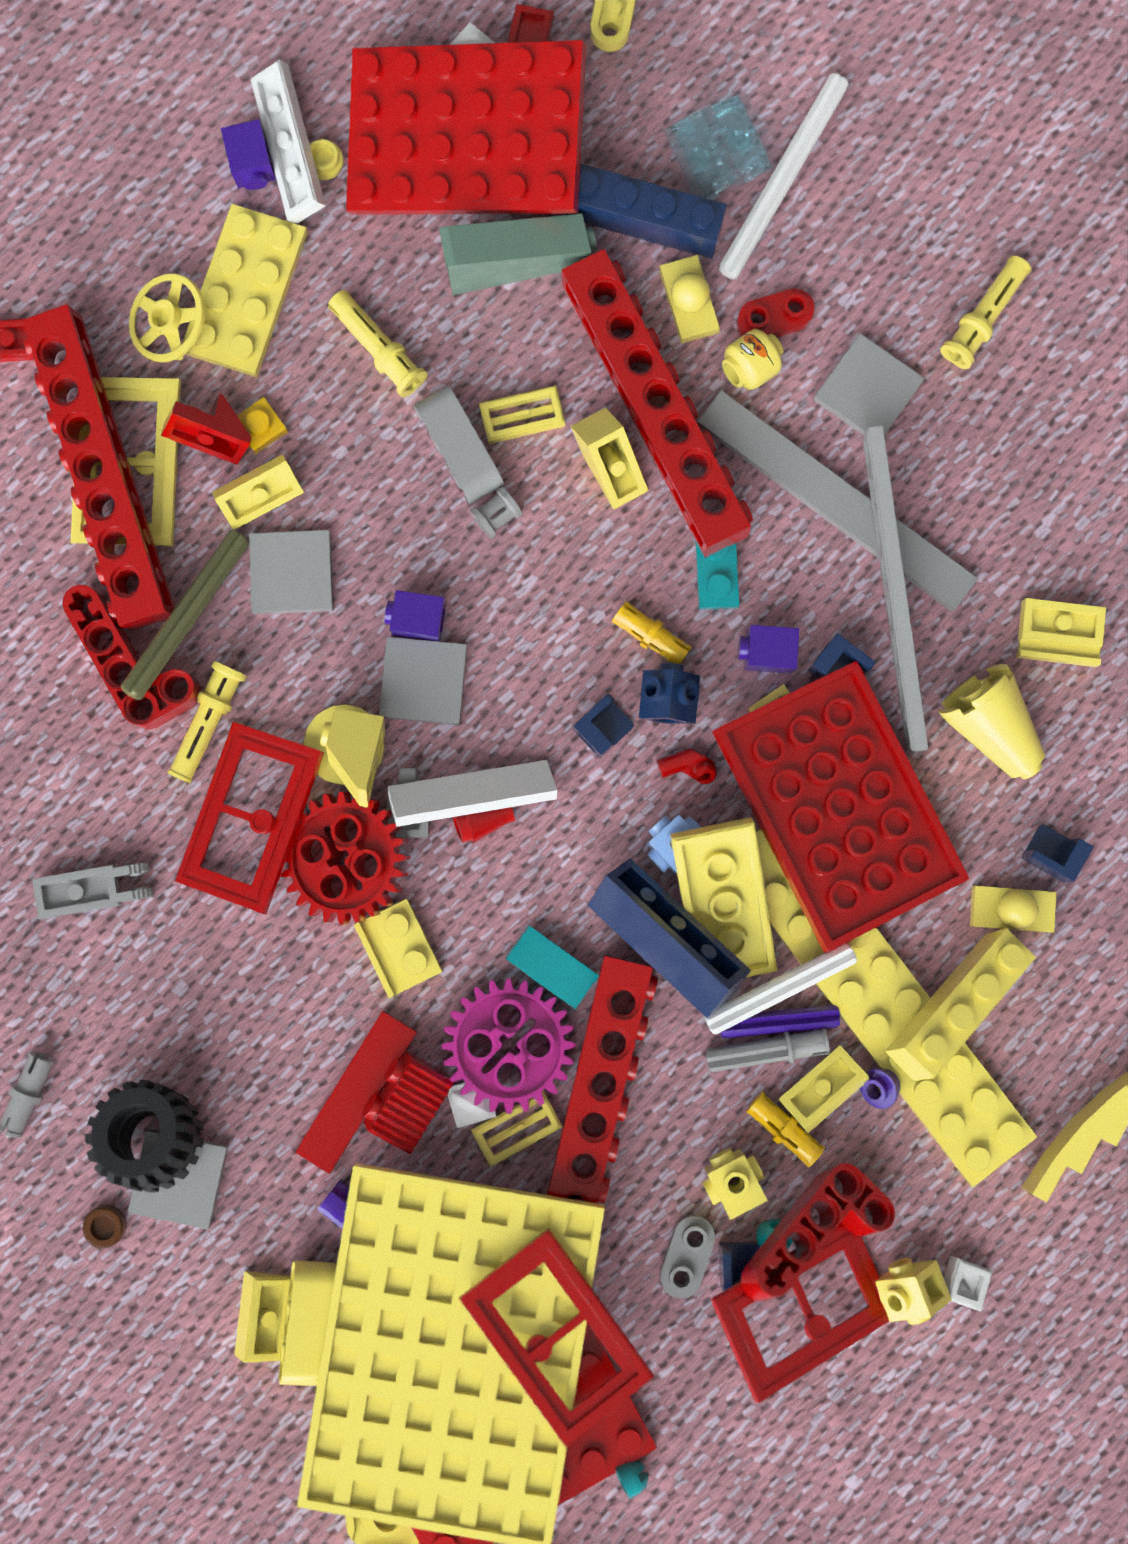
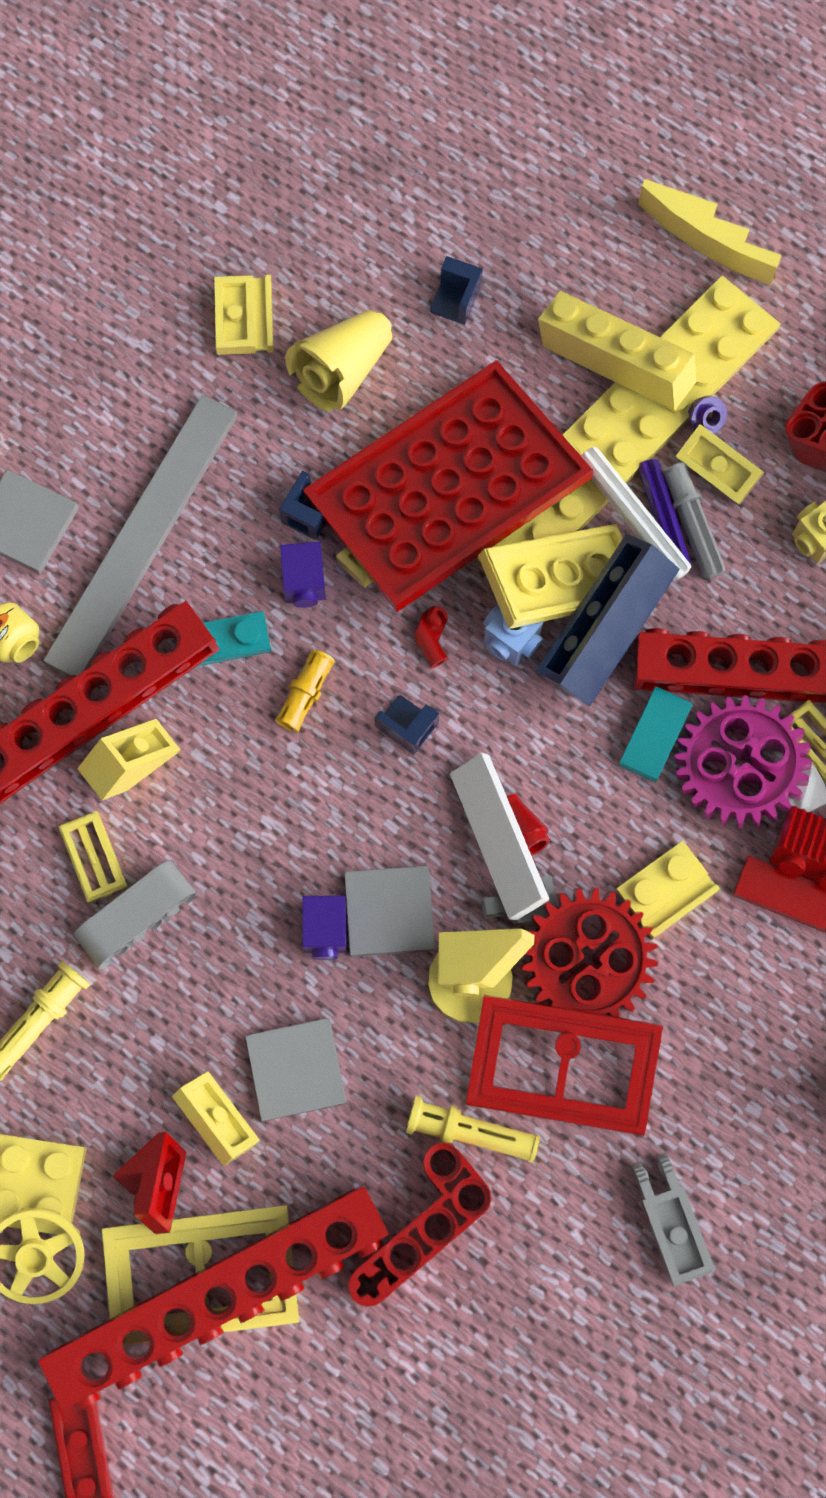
camera: 100 degrees left, 10 degrees down
(184, 615) = (363, 1168): olive axle -> none
(262, 425) = (137, 1129): yellow plate -> none
(509, 511) = (202, 863): light grey bush -> none
(669, 695) = (365, 660): dark blue brick -> none
(785, 1129) = (765, 494): yellow pin -> none
(894, 589) = (225, 464): light grey tile -> none
(1013, 909) = (515, 324): light yellow tile -> none

